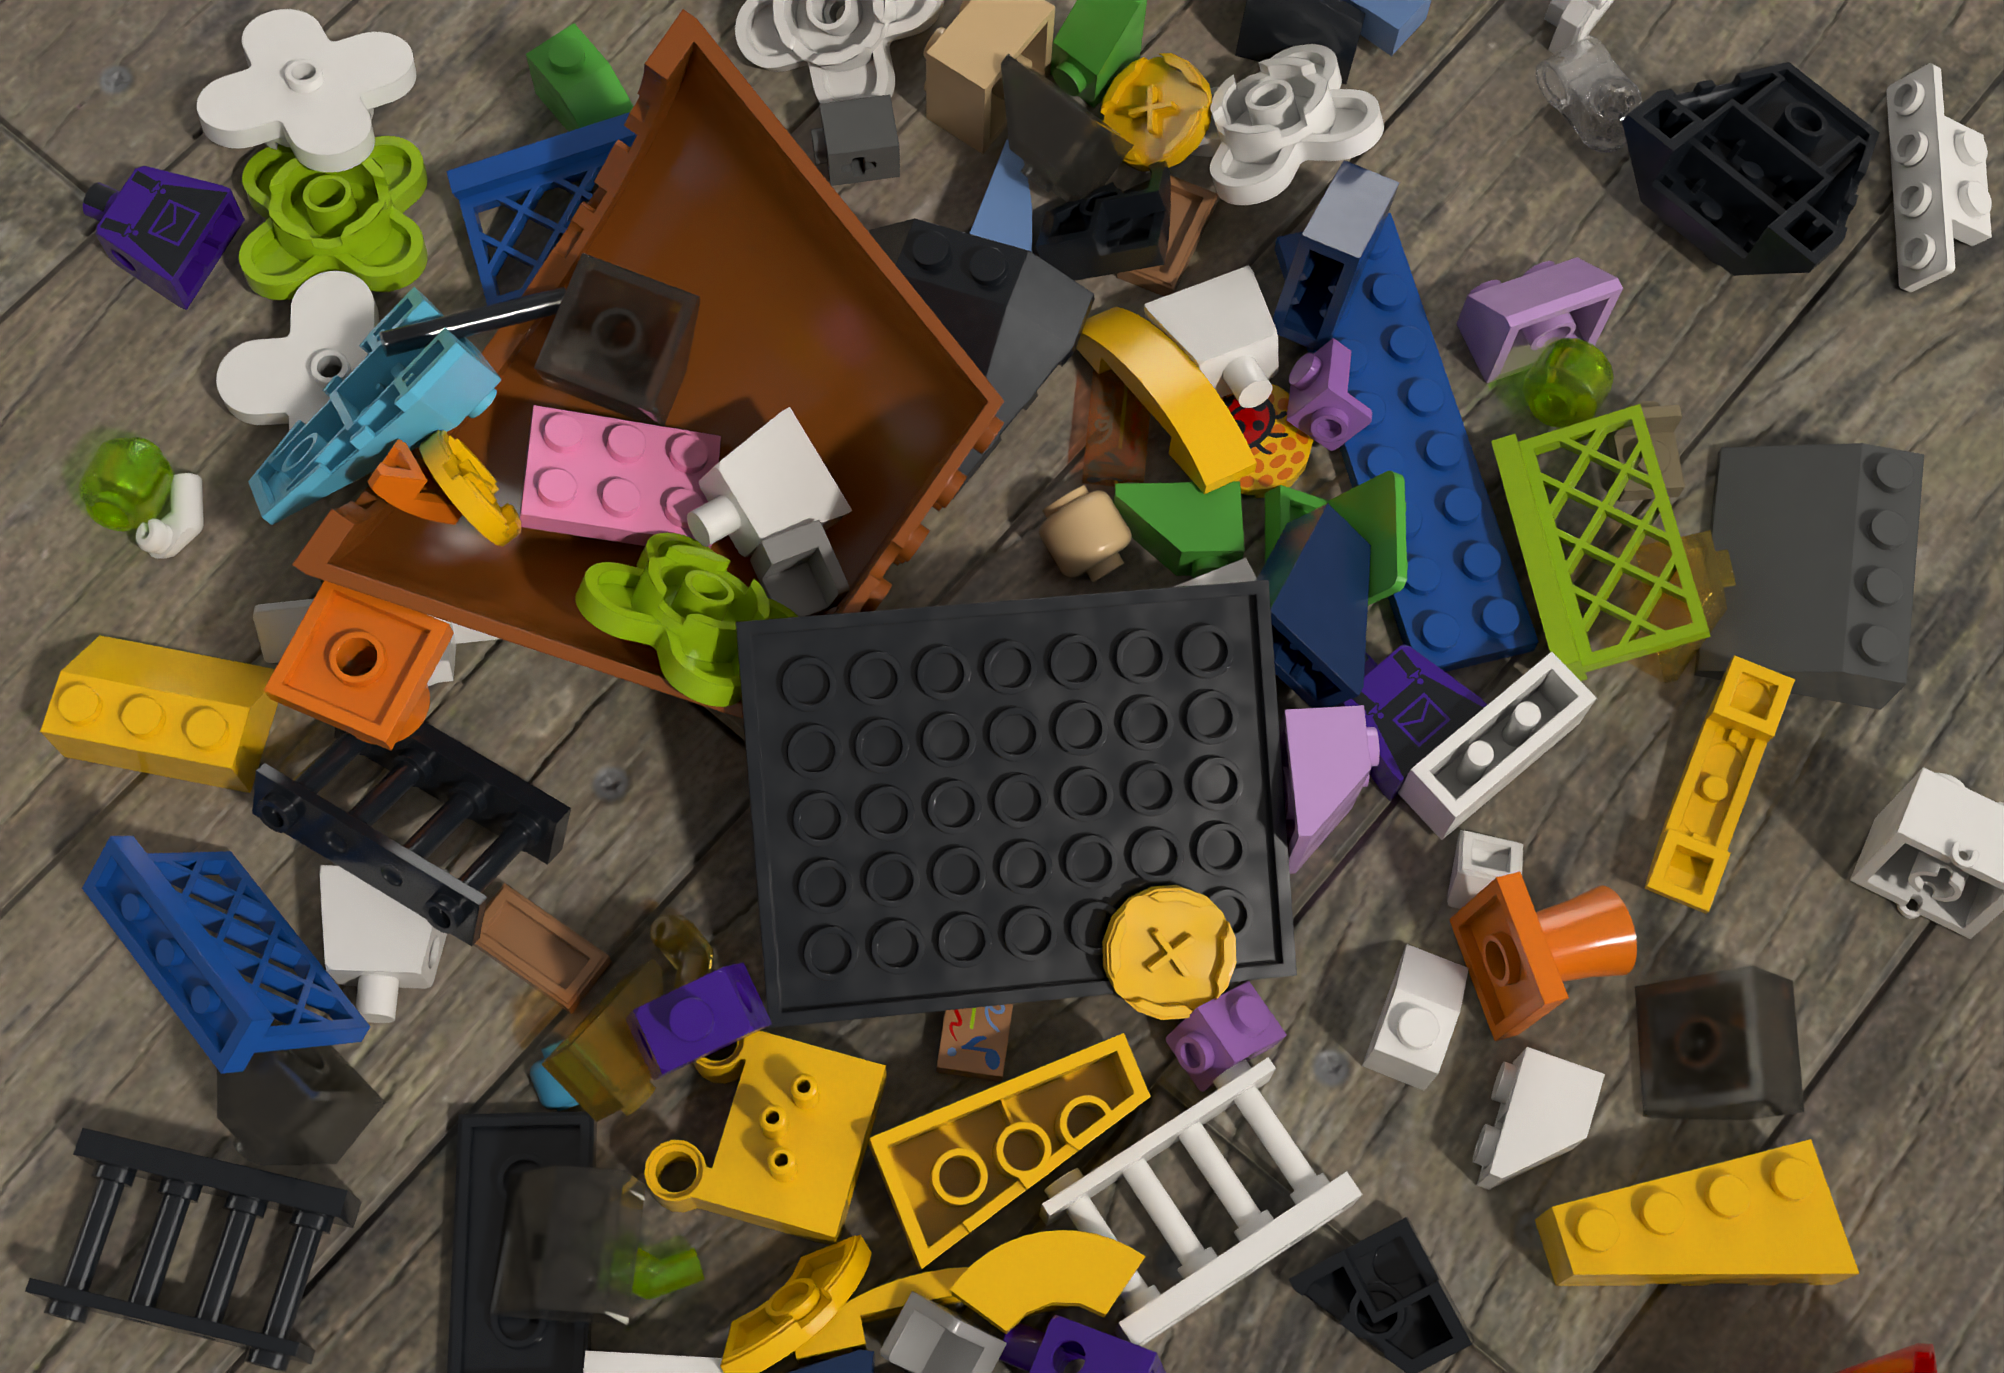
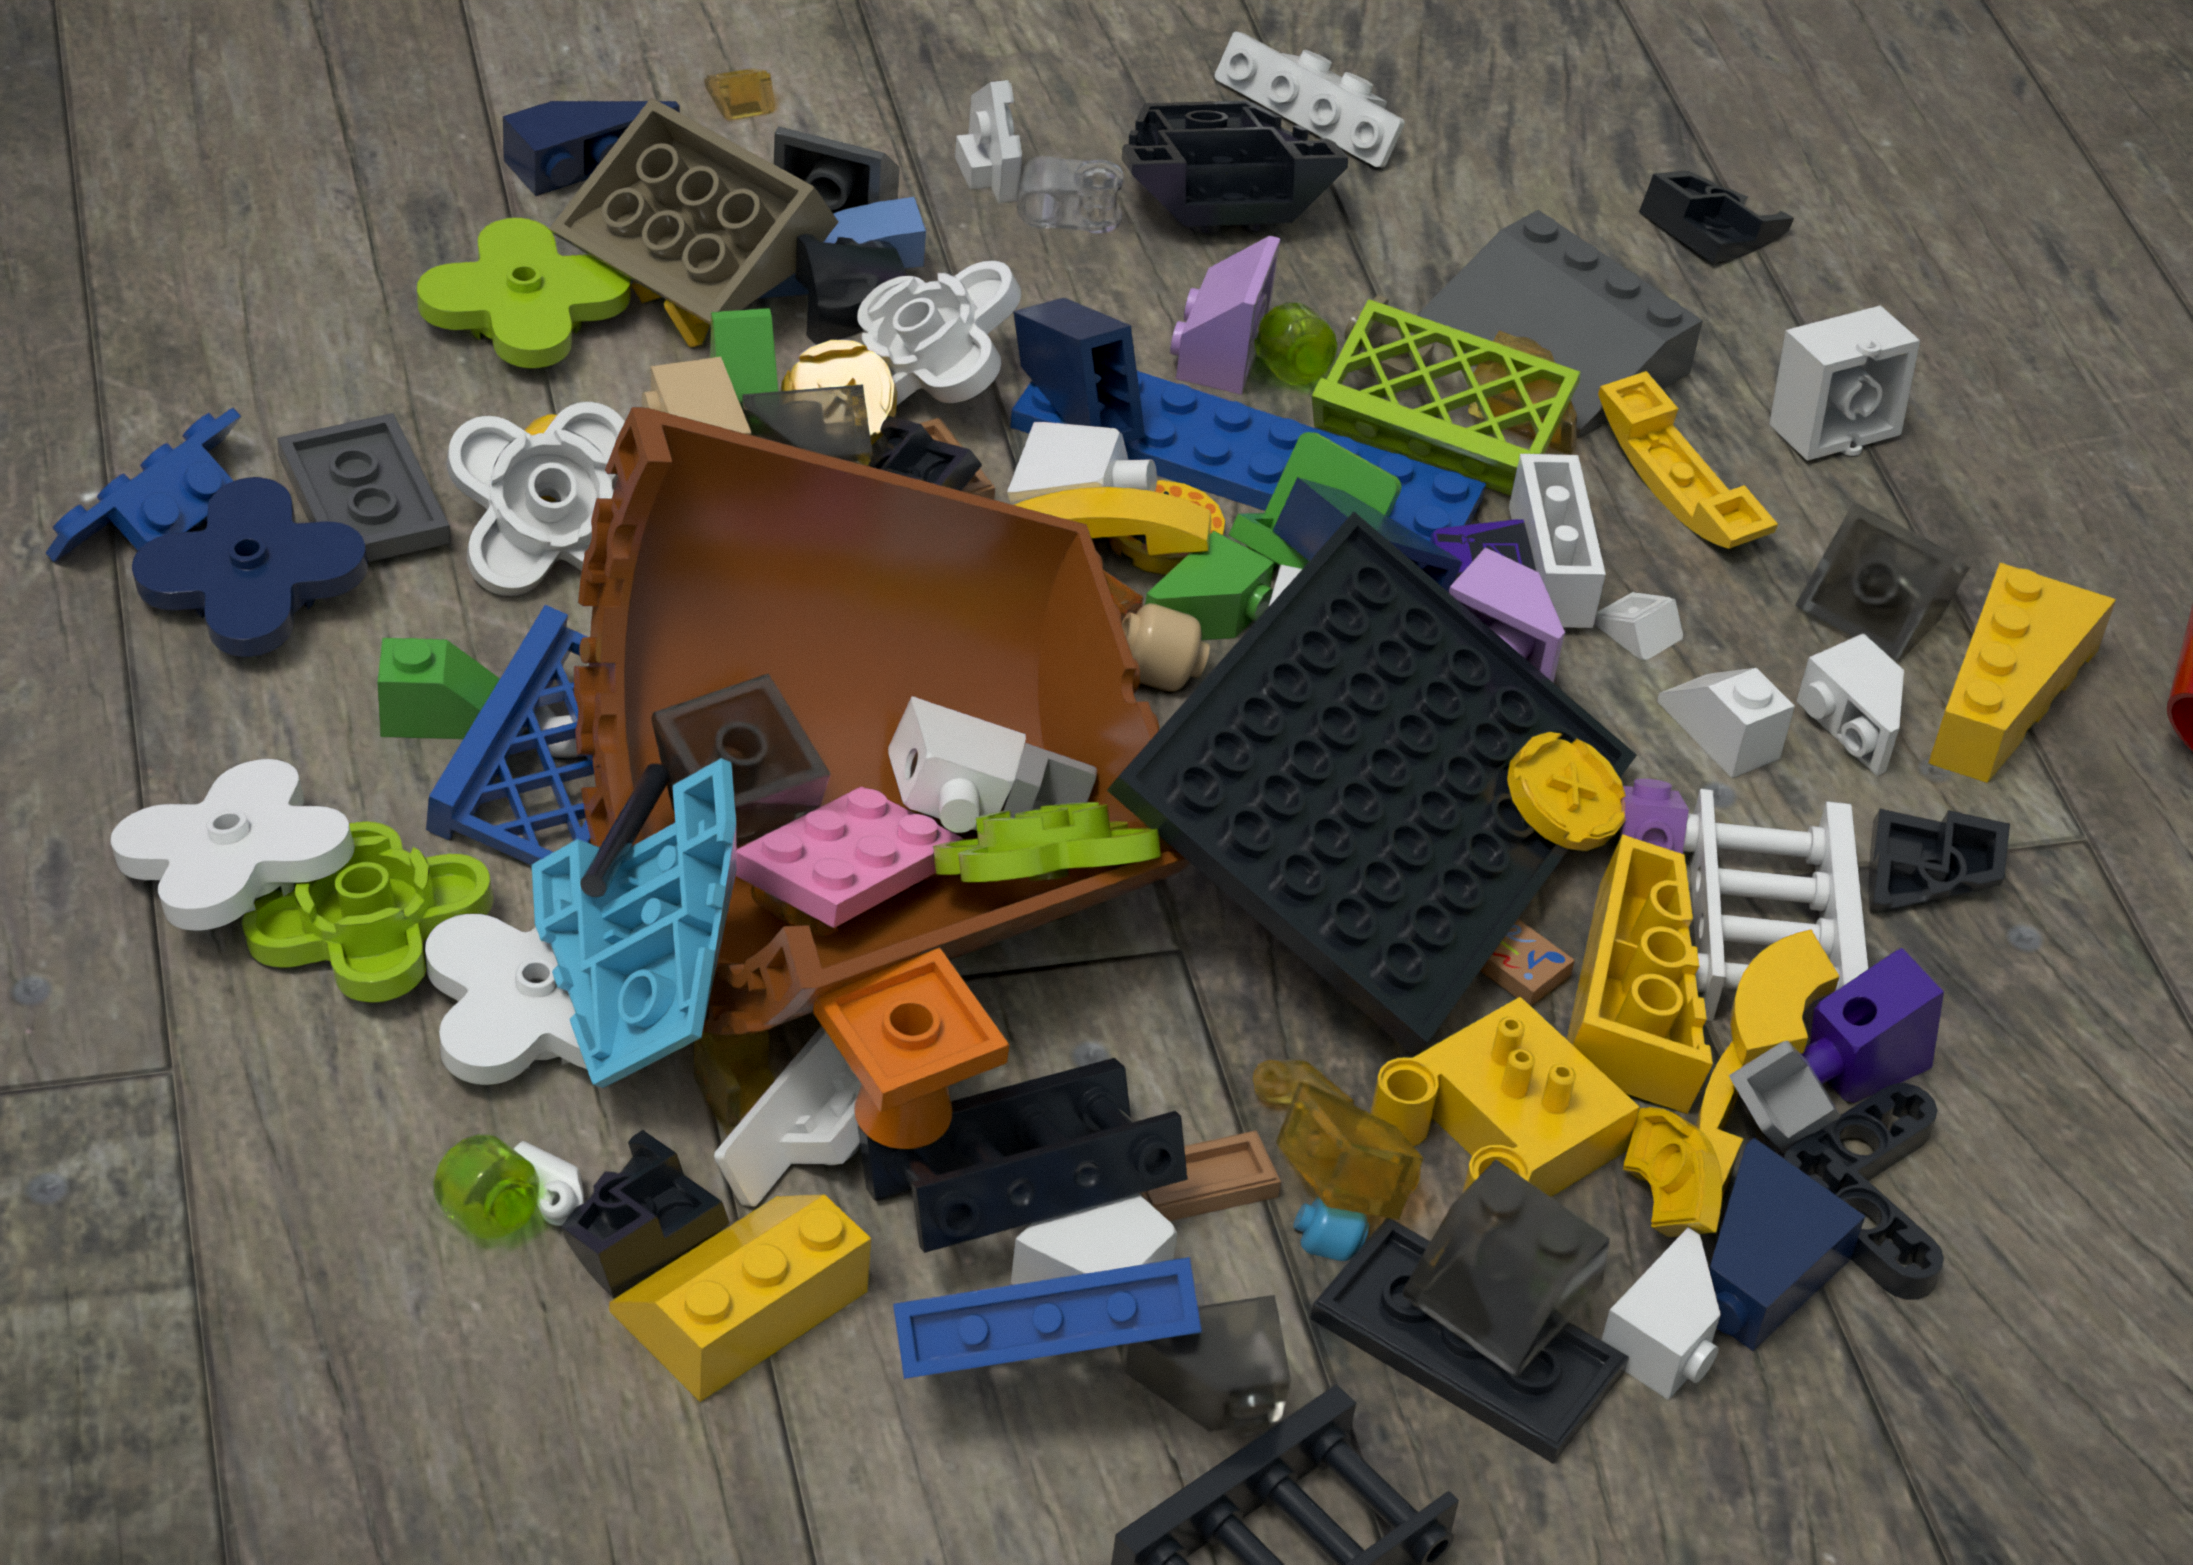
camera: 55 degrees left, 25 degrees down
(165, 229) = (250, 1025): dark purple torso -> none
(190, 597) = (641, 1217): none -> black slope
(411, 486) = (763, 911): orange slope -> none
(470, 487) = (773, 897): yellow tile -> none
(697, 1019) = (1410, 1023): dark purple torso -> none
(1321, 400) = (1186, 452): medium lavender bracket -> none
(1526, 955) = (1733, 612): orange plant -> none

